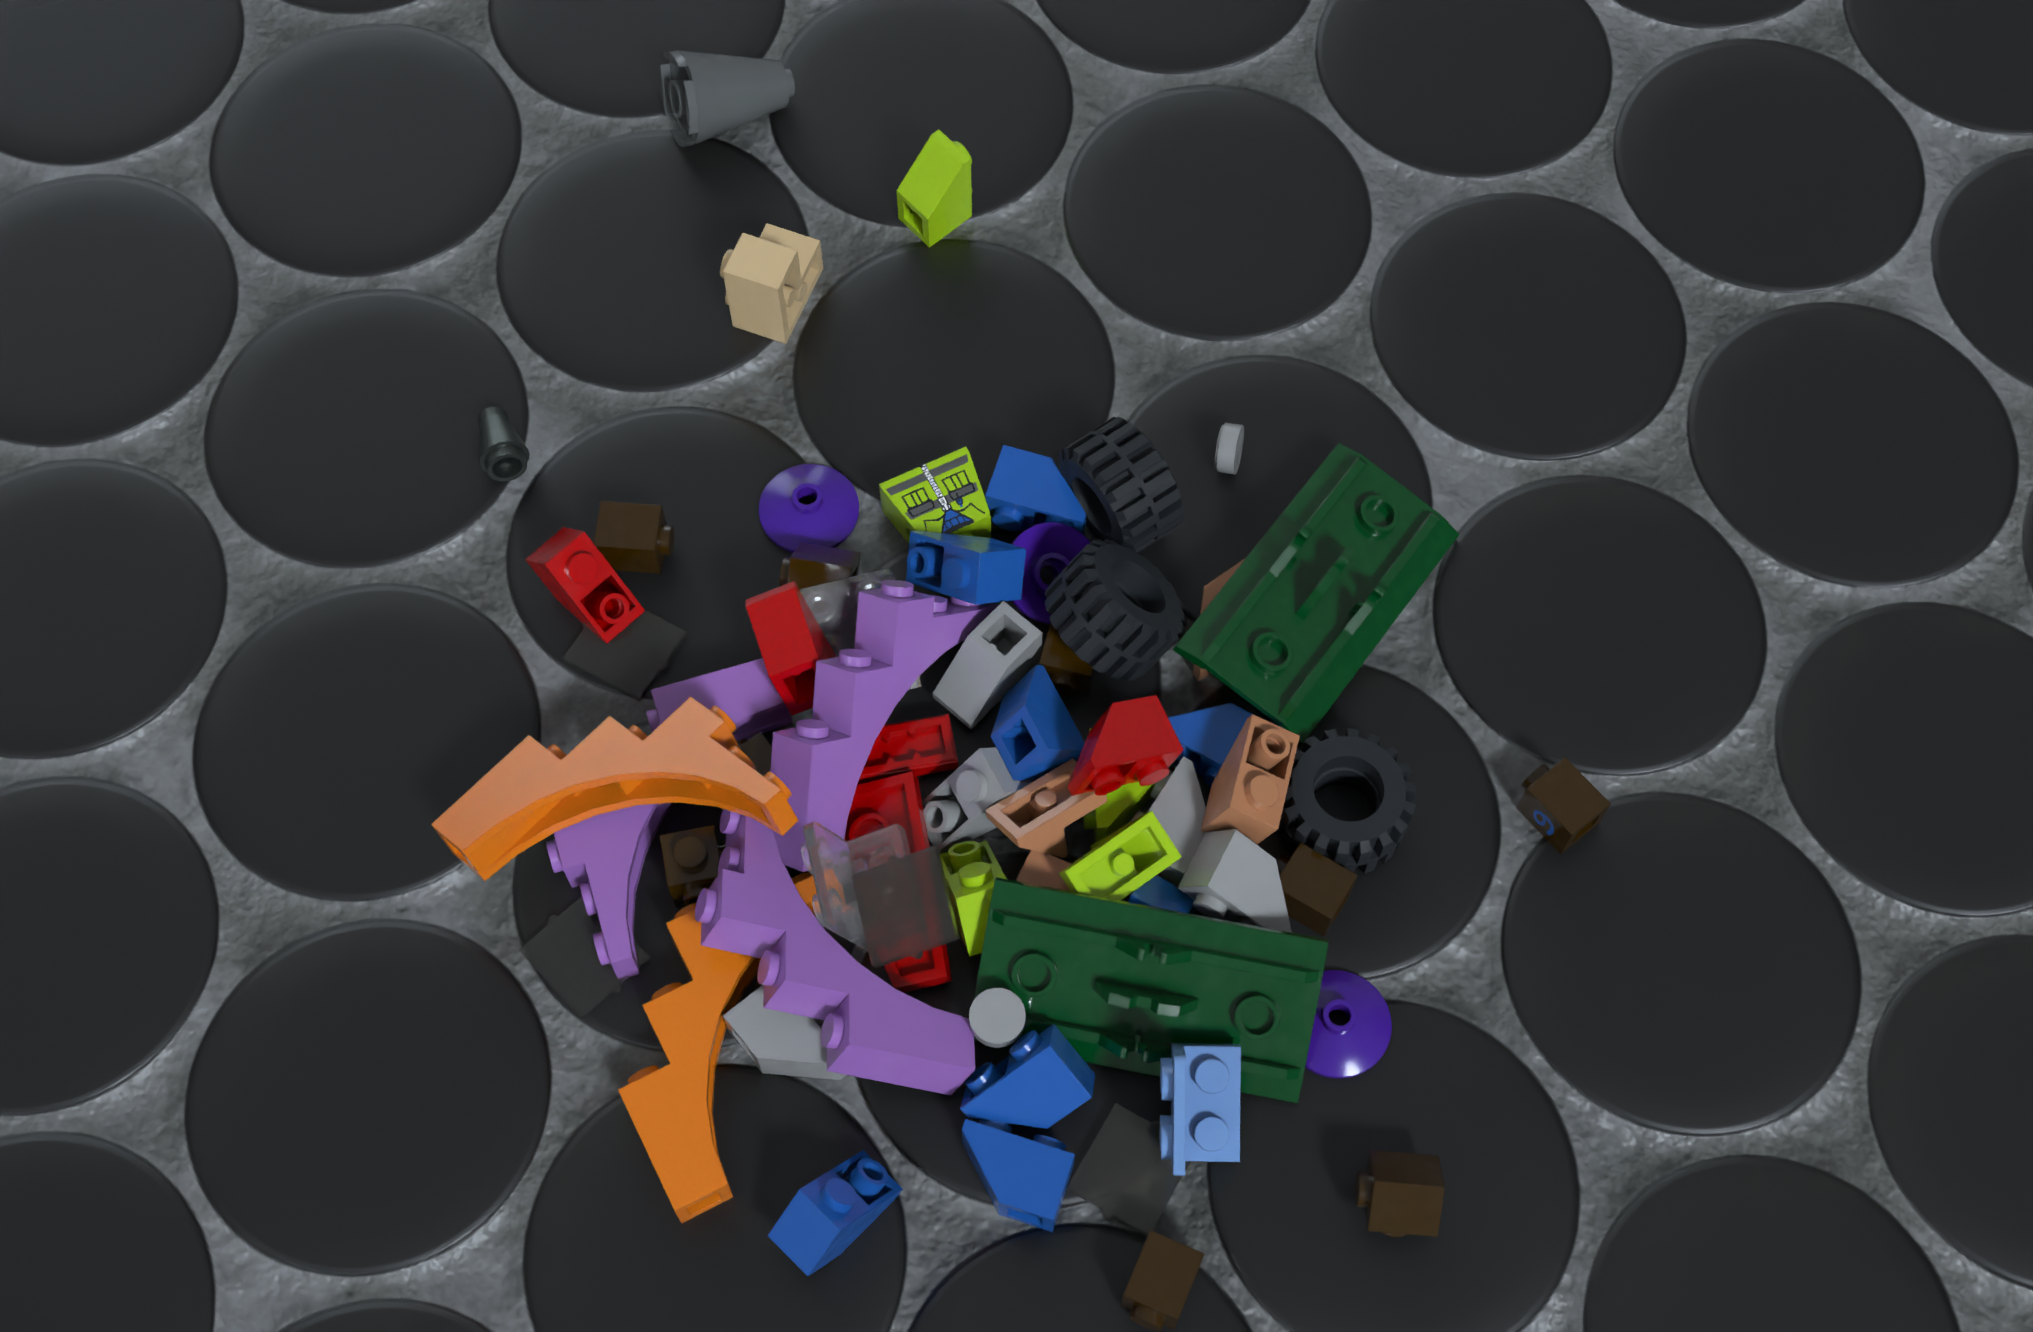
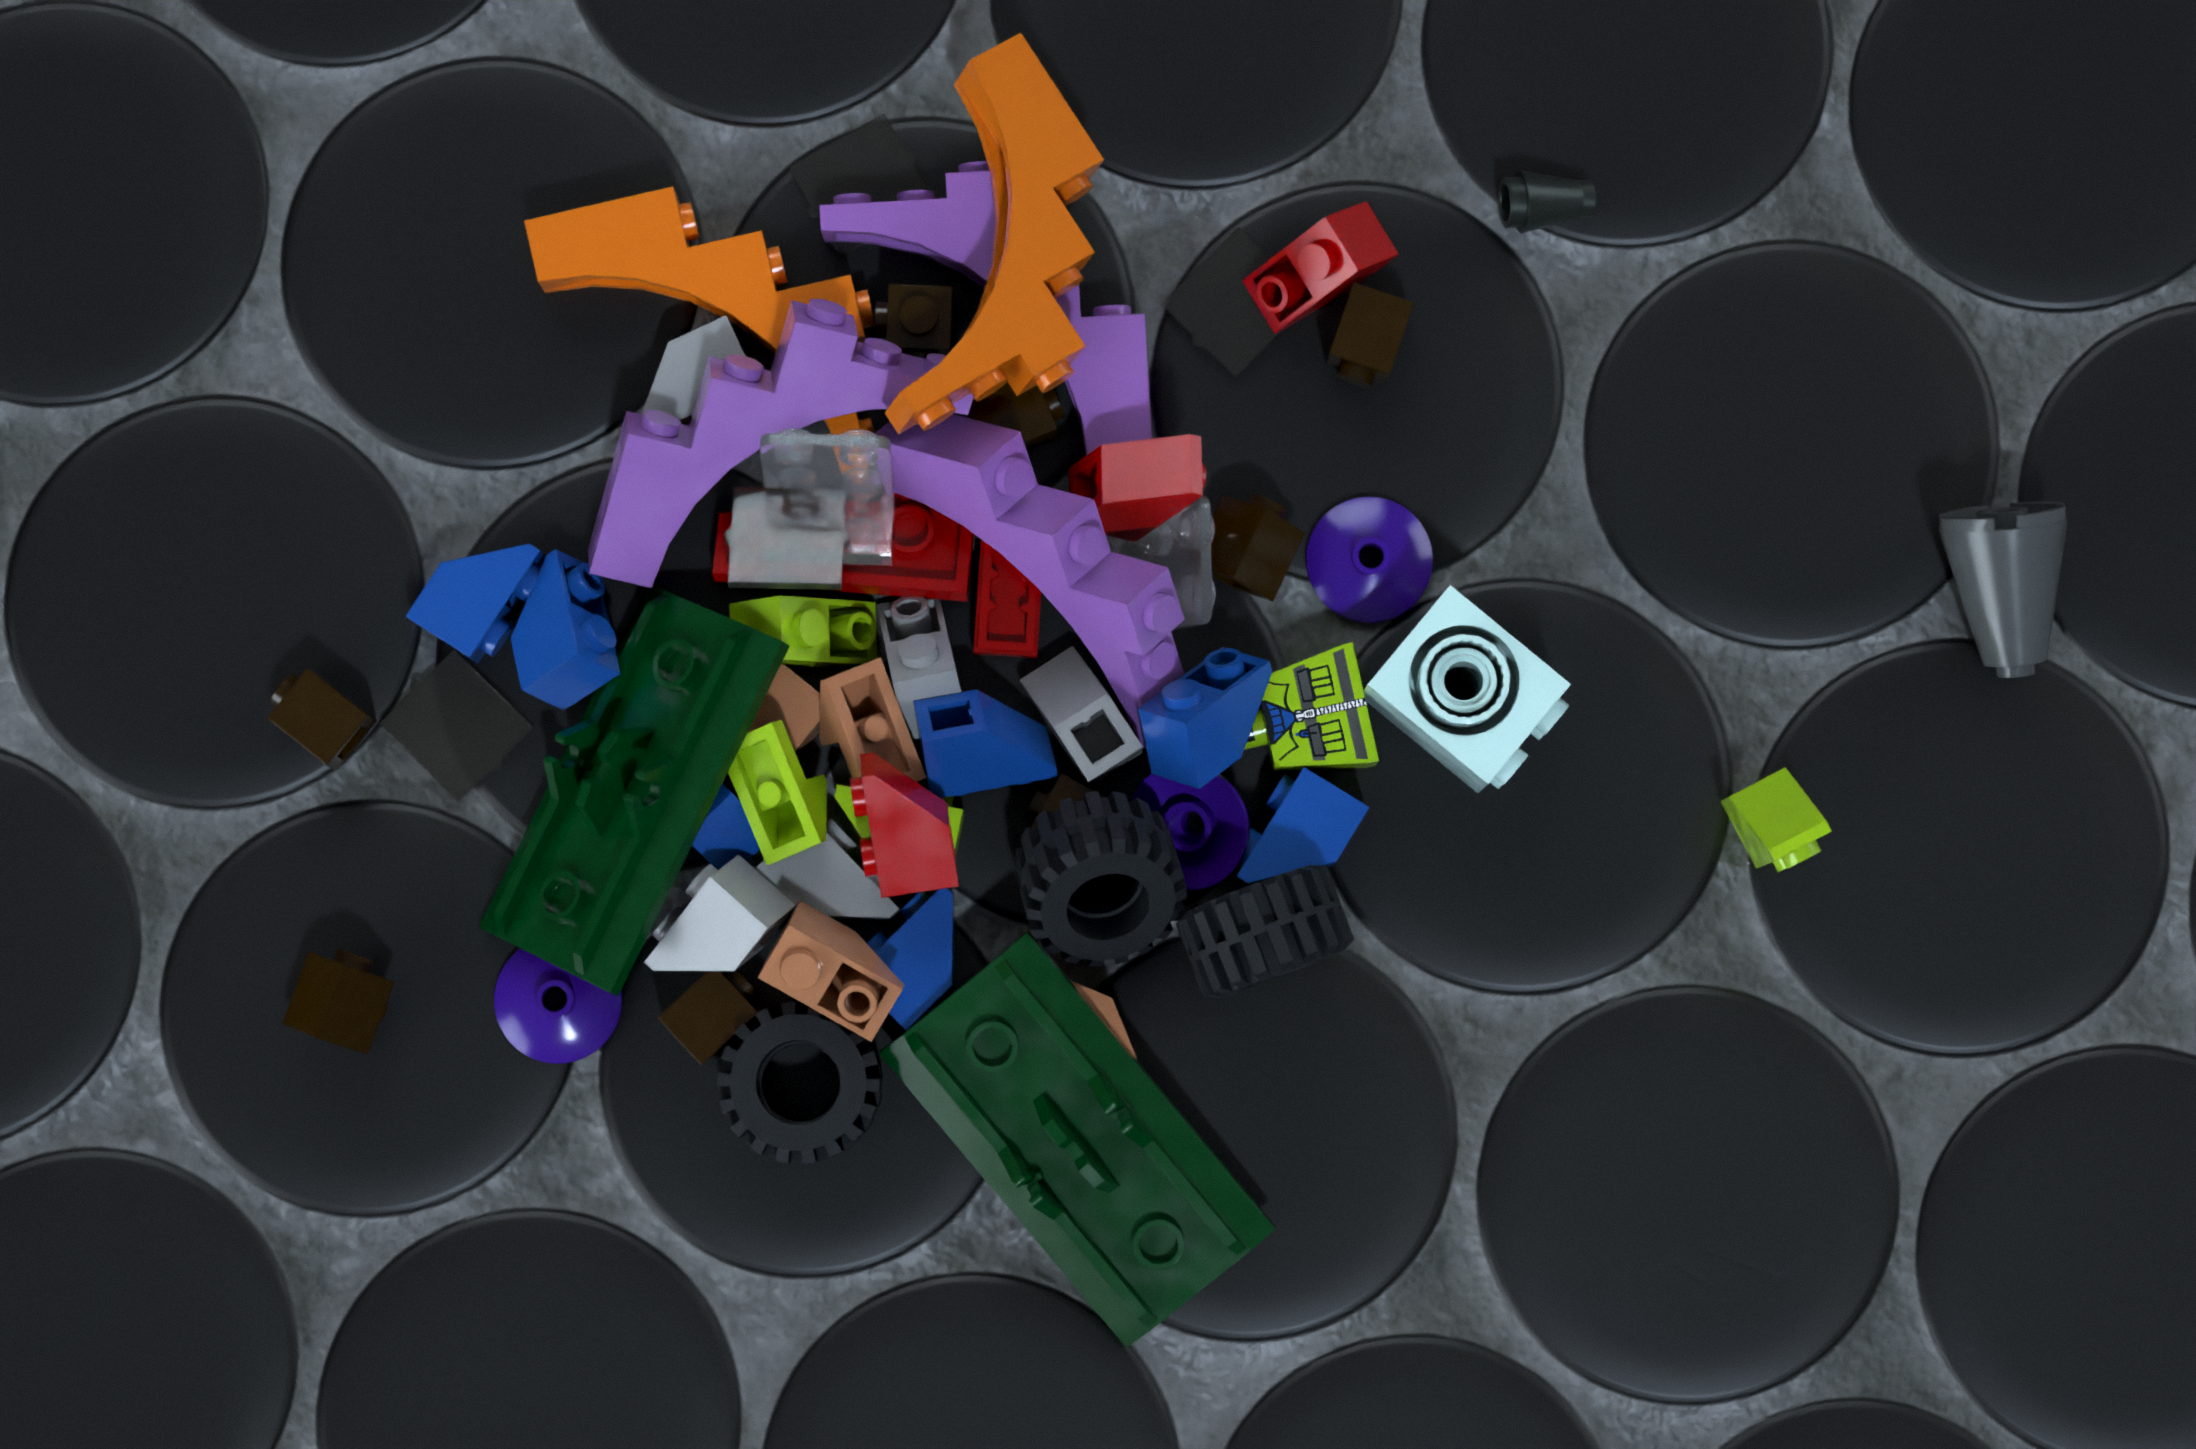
camera: 105 degrees right, 20 degrees up
(770, 280) = (1695, 583): tan brick -> none
(833, 1211) = (489, 394): blue slope -> none
(895, 398) = (1510, 701): none -> light aqua brick
(997, 1017) = (640, 611): light grey tile -> none
(1205, 1104) = (486, 804): medium blue bracket -> none
(1229, 448) = (1311, 1094): light grey tile -> none
(1561, 804) = (737, 1340): dark brown brick -> none

